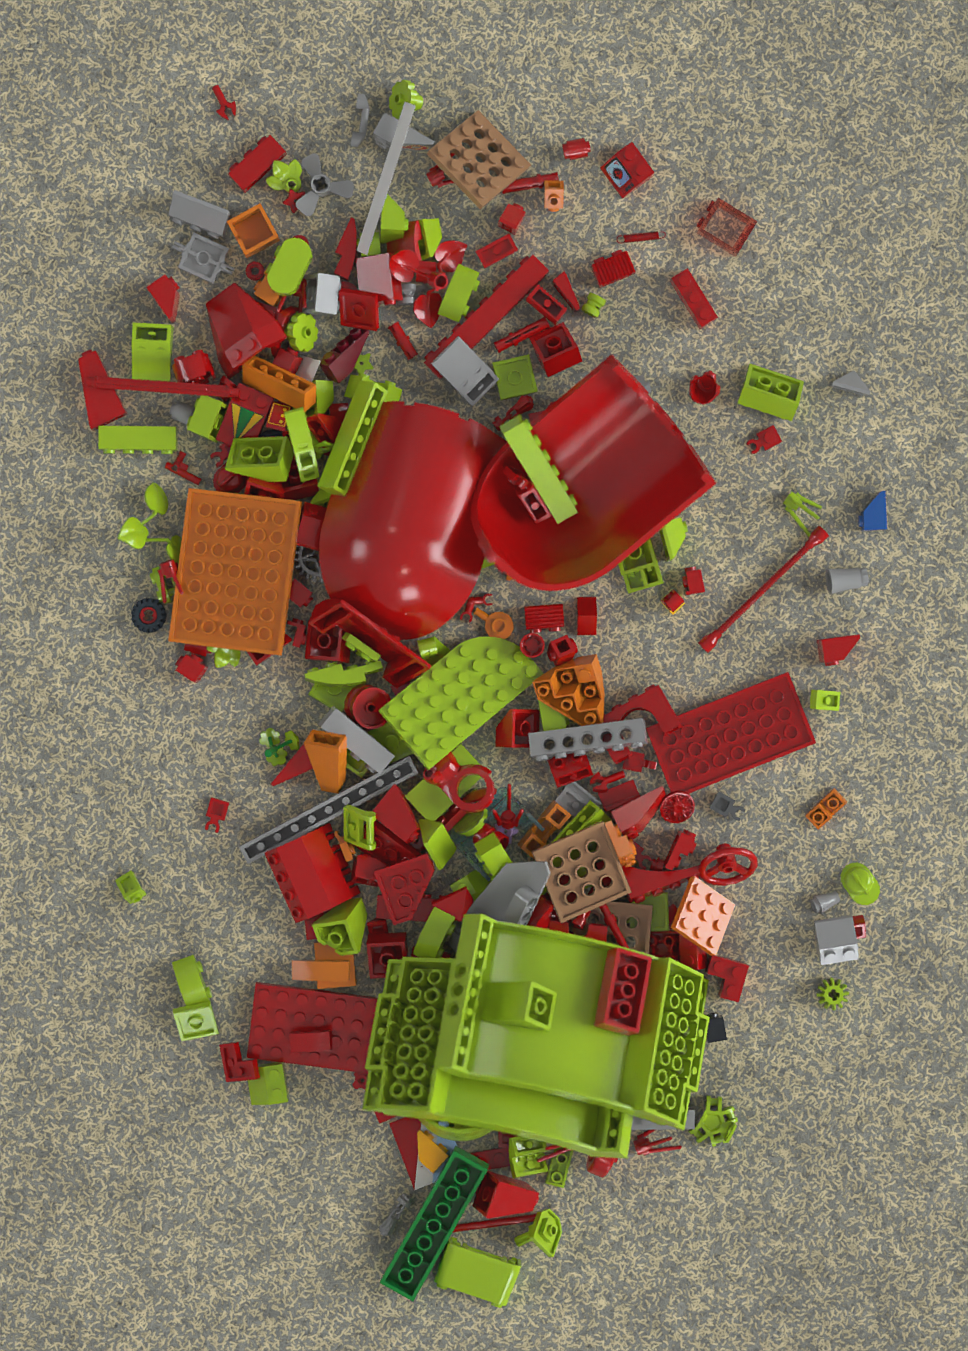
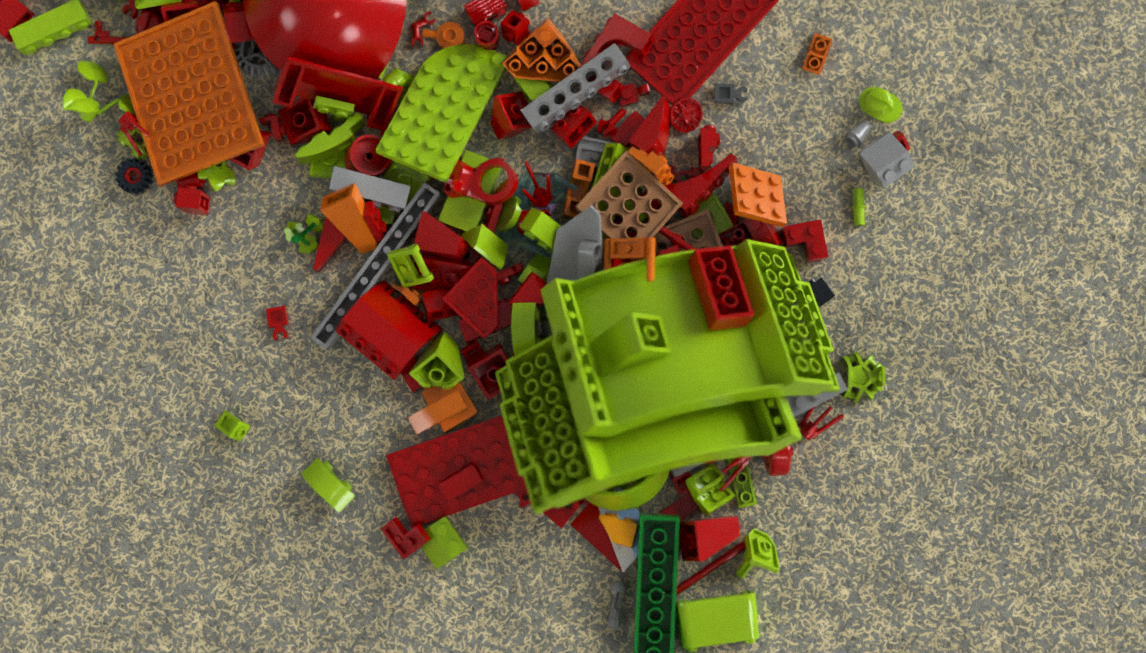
camera: 30 degrees left, 5 degrees down
(195, 1021) = (348, 517): lime plate -> none
(300, 594) = (259, 91): red brick -> none
(347, 770) = (373, 219): none -> red plate
(445, 872) = (504, 275): none -> red plate
(560, 916) = (631, 249): none -> orange plate
(727, 863) = (754, 140): red piece -> none
(791, 968) = (858, 207): none -> lime axle
(828, 1000) = (909, 217): lime gear -> none

